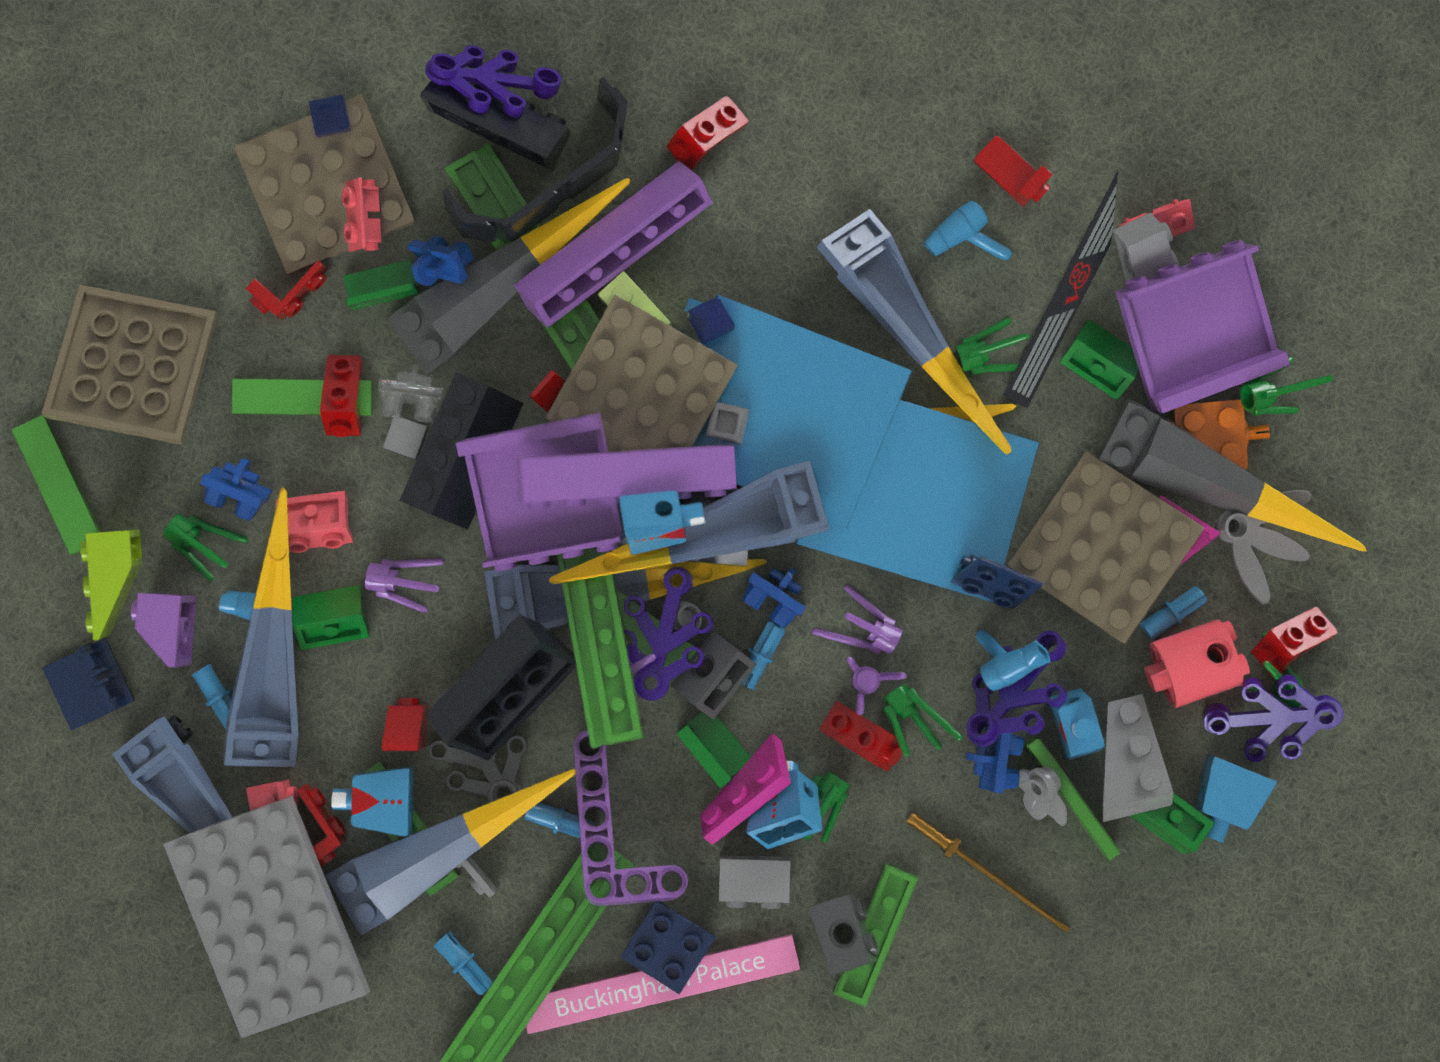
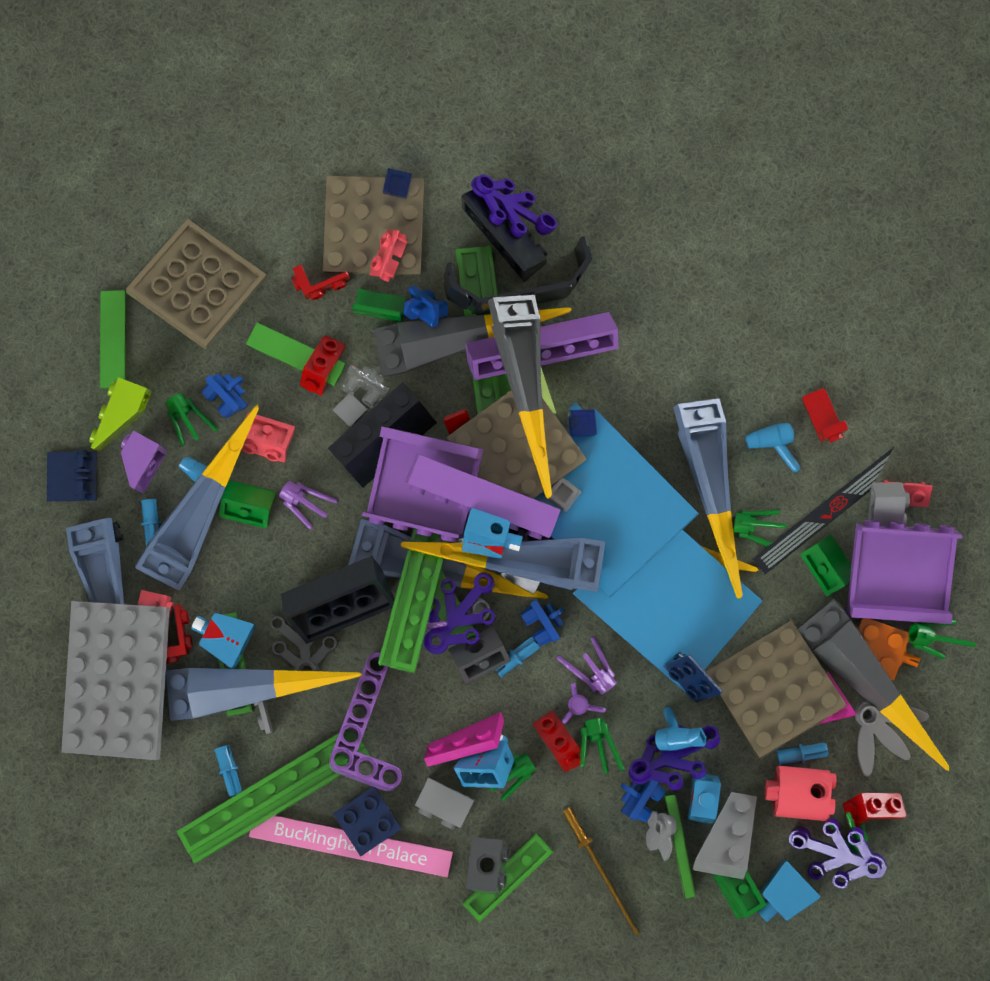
camera: 30 degrees right, 5 degrees down
(405, 726) = (264, 596): red slope -> none
(556, 819) = (331, 702): dark azure axle -> none
(582, 254) = (518, 342): none -> dark grey plate
(706, 131) = (635, 301): red bracket -> none
(714, 747) = (458, 703): green panel -> none

